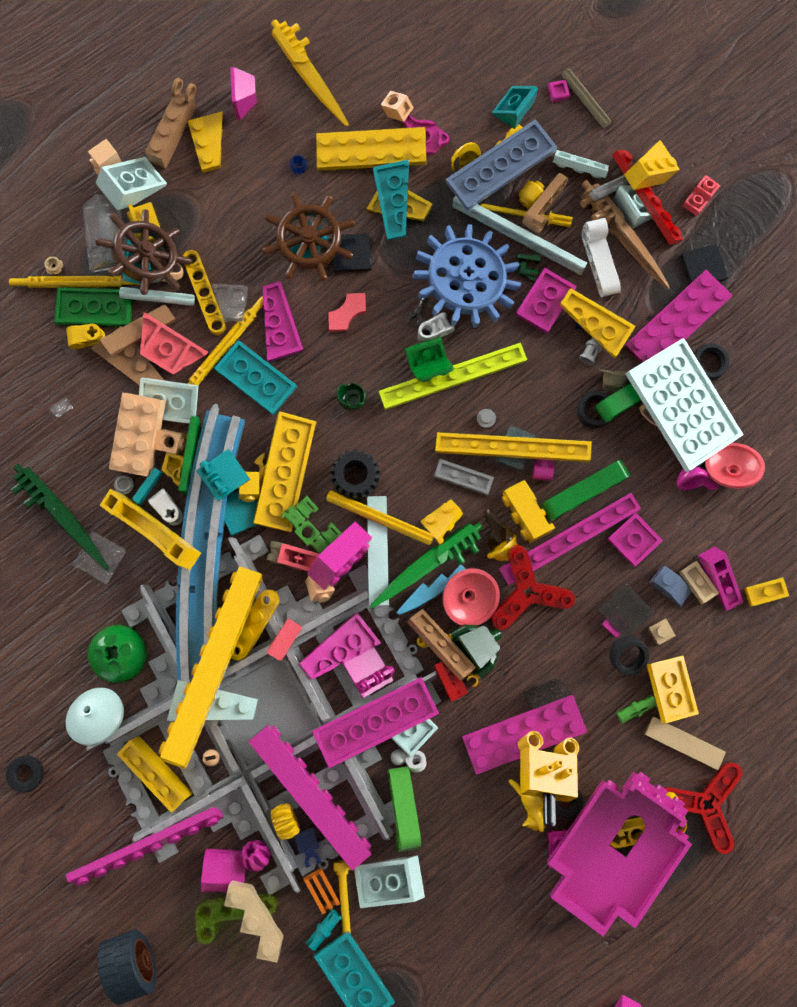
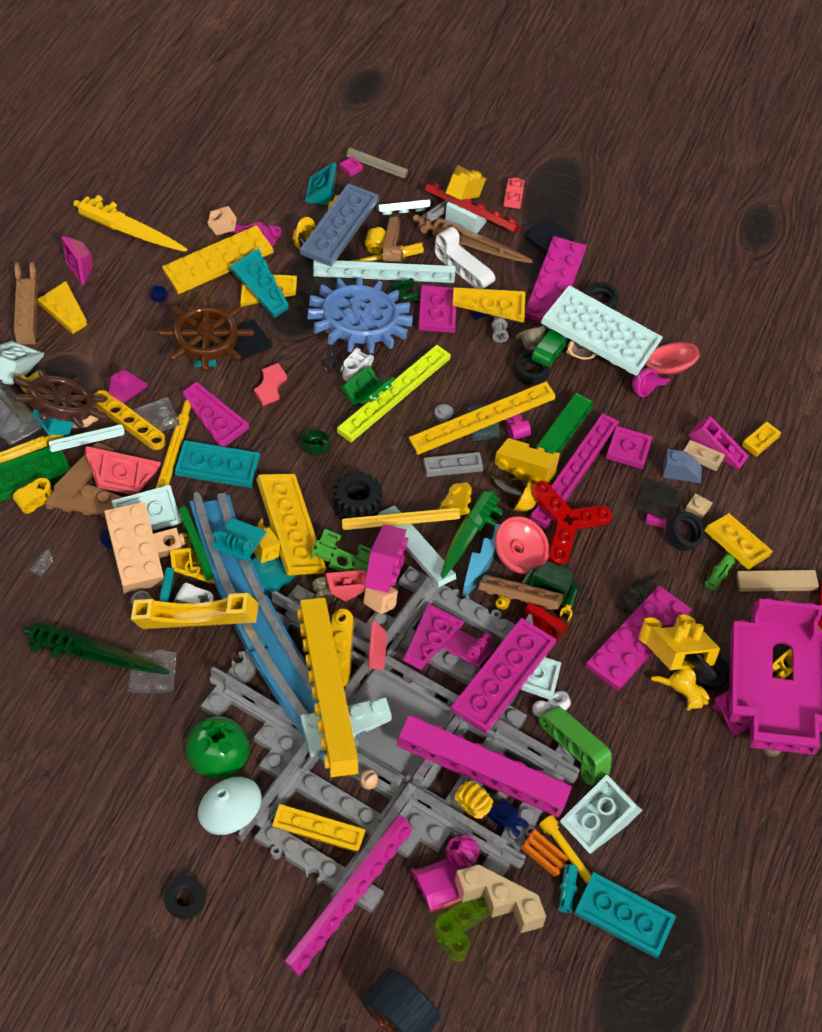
camera: 30 degrees left, 25 degrees down
(217, 256) = (125, 385): none -> dark pink slope

